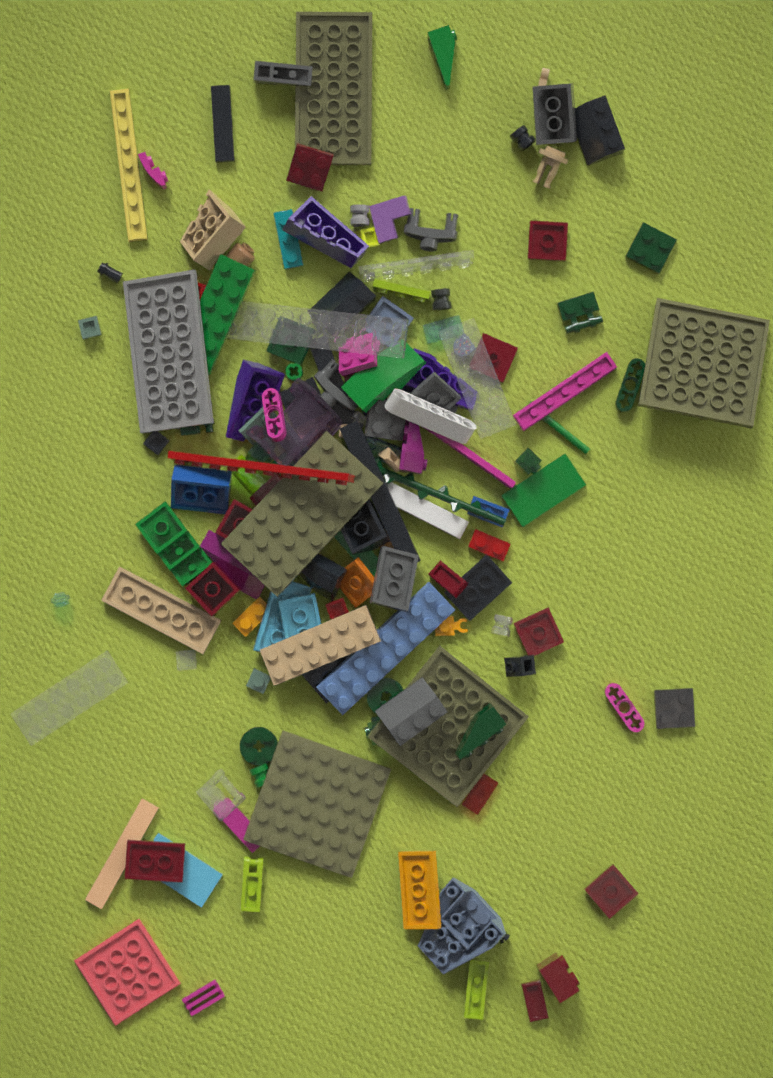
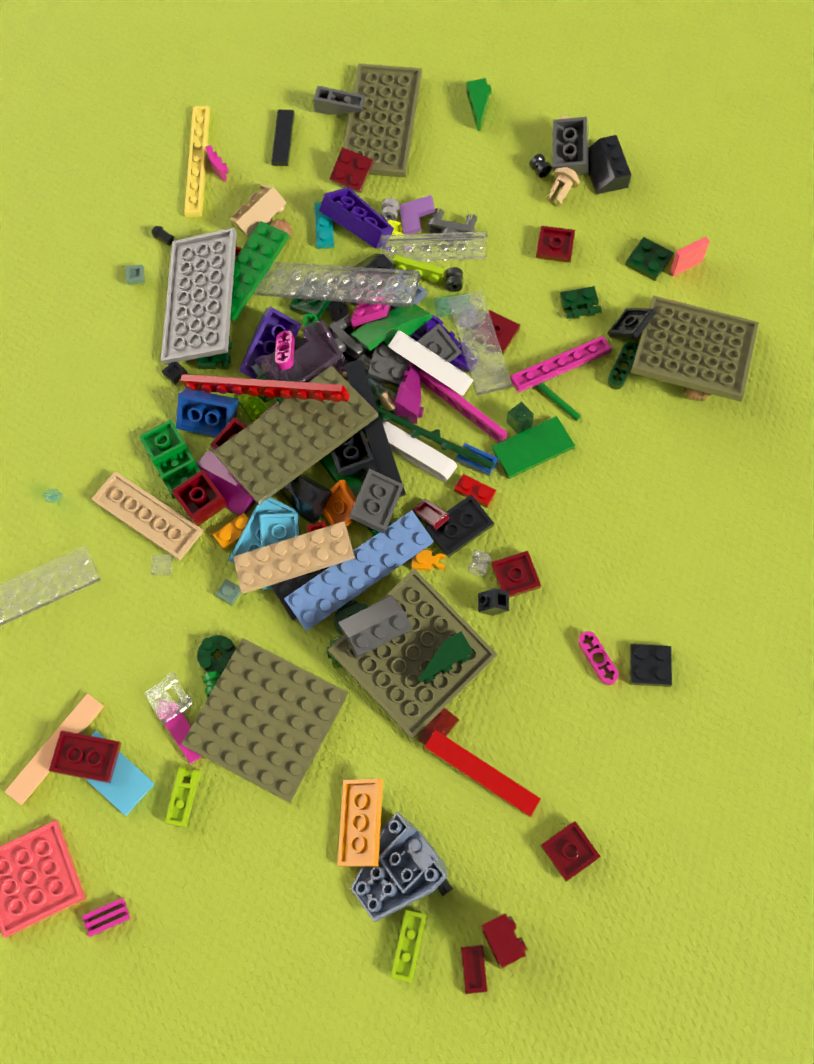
camera: 10 degrees right, 20 degrees down
(525, 831) = (482, 773): none -> red tile
(635, 337) = (631, 323): none -> black tile
(693, 249) = (689, 256): none -> coral tile

